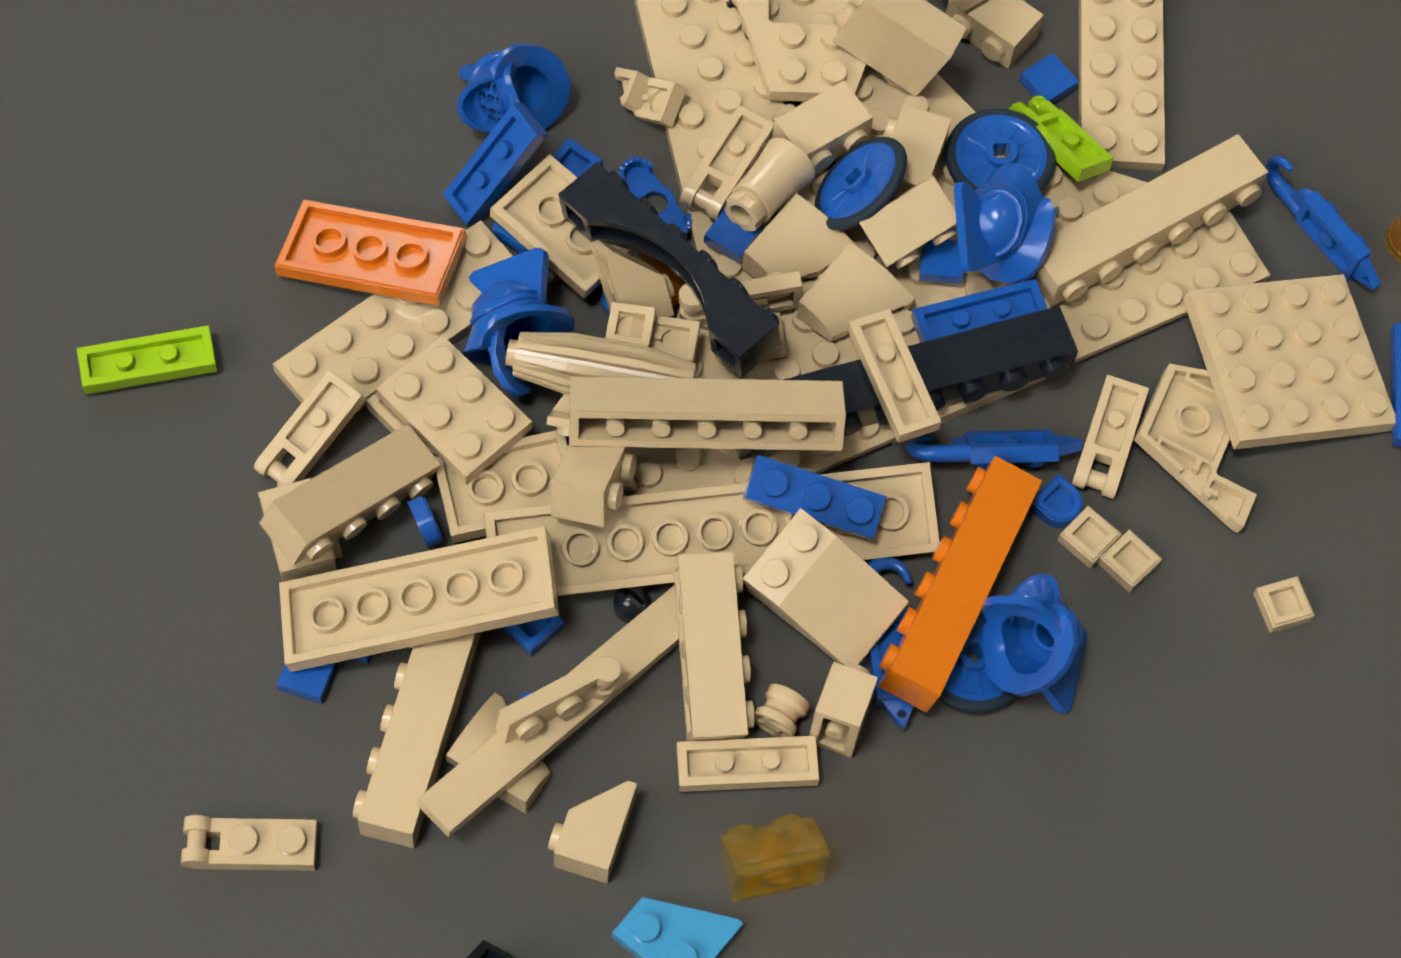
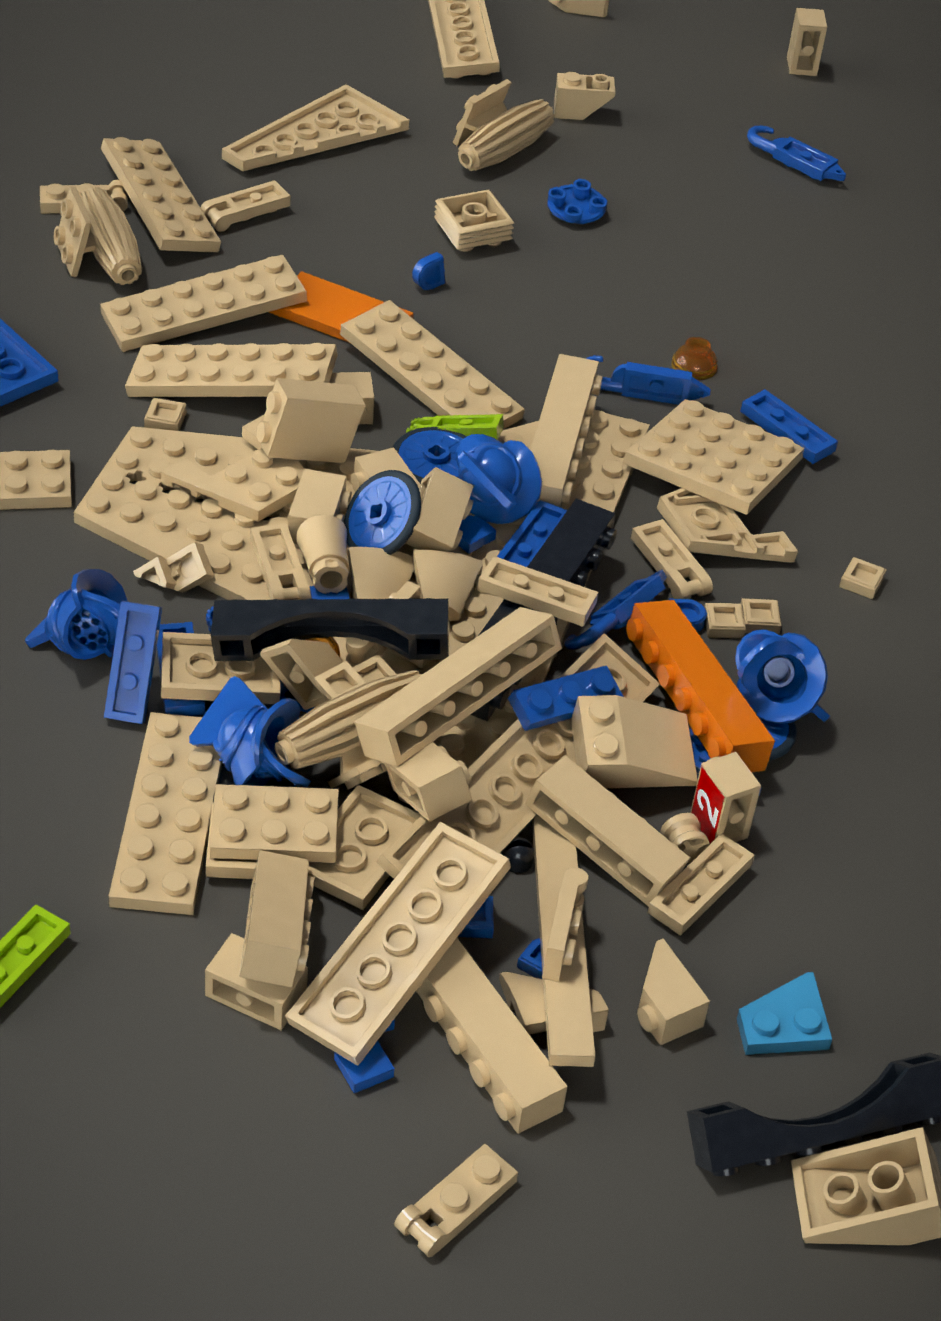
camera: 45 degrees left, 20 degrees down
(310, 430) = (191, 909): tan plate -> none
(371, 252) = (99, 779): orange tile -> none
(425, 521) = (334, 907): blue tile -> none
(773, 857) = (786, 915): clear yellow slope -> none
(1049, 79) = (404, 410): blue tile -> none

